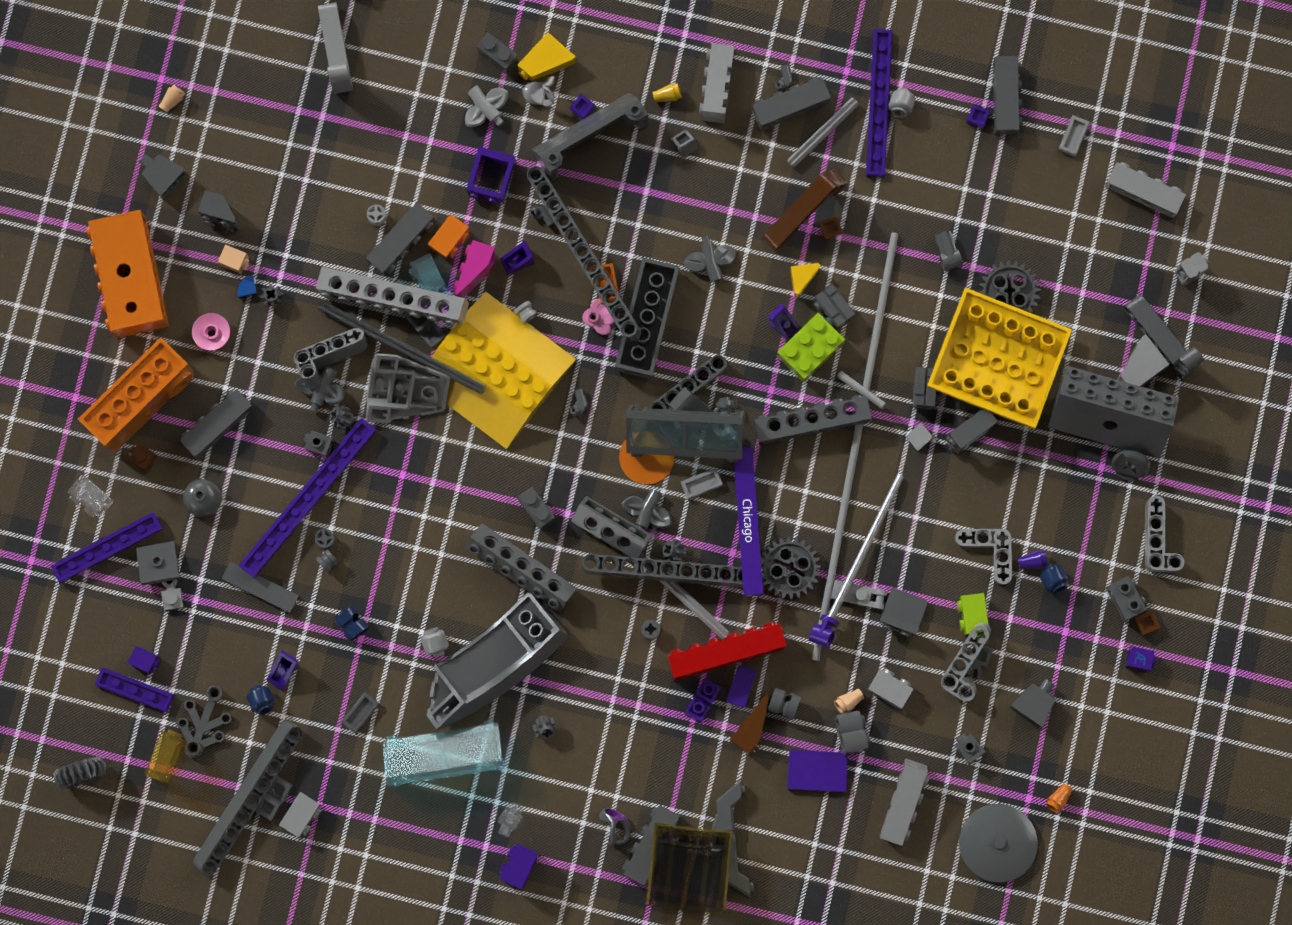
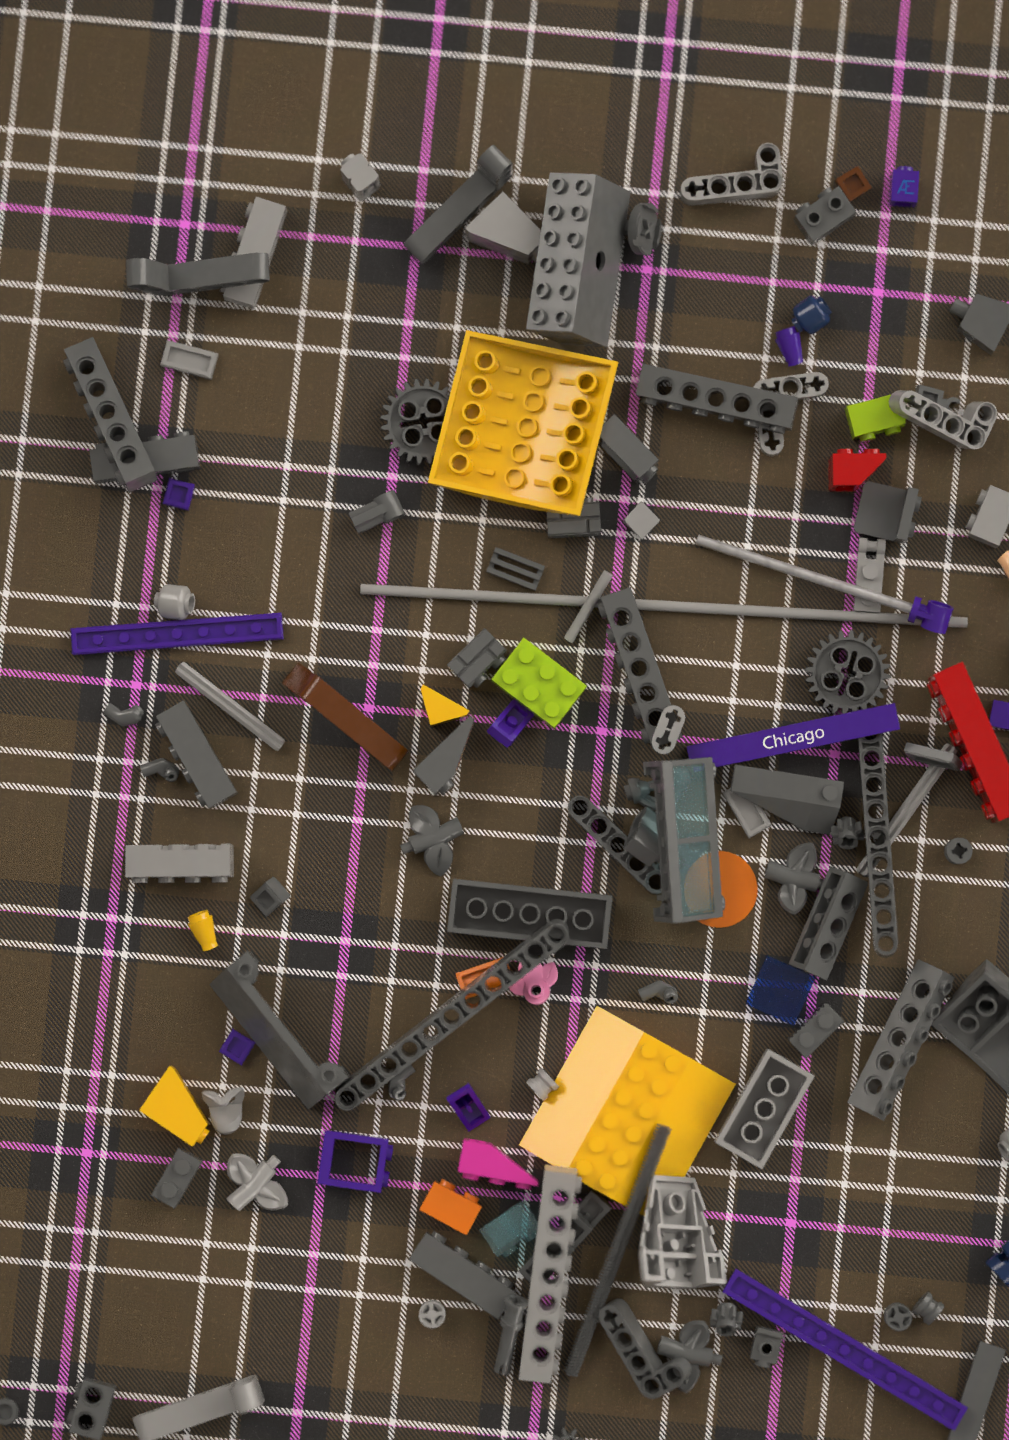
camera: 100 degrees left, 5 degrees up
(361, 266) = (511, 1324): none -> dark grey pin
(486, 463) = (764, 1108): none -> light grey brick
(568, 488) = (780, 990): none -> clear blue plate
(704, 517) = (799, 799): none -> dark grey wedge
(720, 619) = (933, 756): none -> dark grey tile
(763, 435) = (662, 726): none -> light grey beam
(764, 274) = (442, 764): none -> dark grey slope
(824, 59) = (124, 717): none -> dark grey arm
(830, 228) = (365, 677): reddish brown plate -> none
(902, 330) = (536, 577): none -> dark grey tile
(936, 589) = (852, 469): none -> red slope
(988, 547) = (653, 376): none -> dark grey brick
(998, 87) = (87, 355): none -> dark grey brick
(1133, 142) = (196, 276): none -> dark grey beam

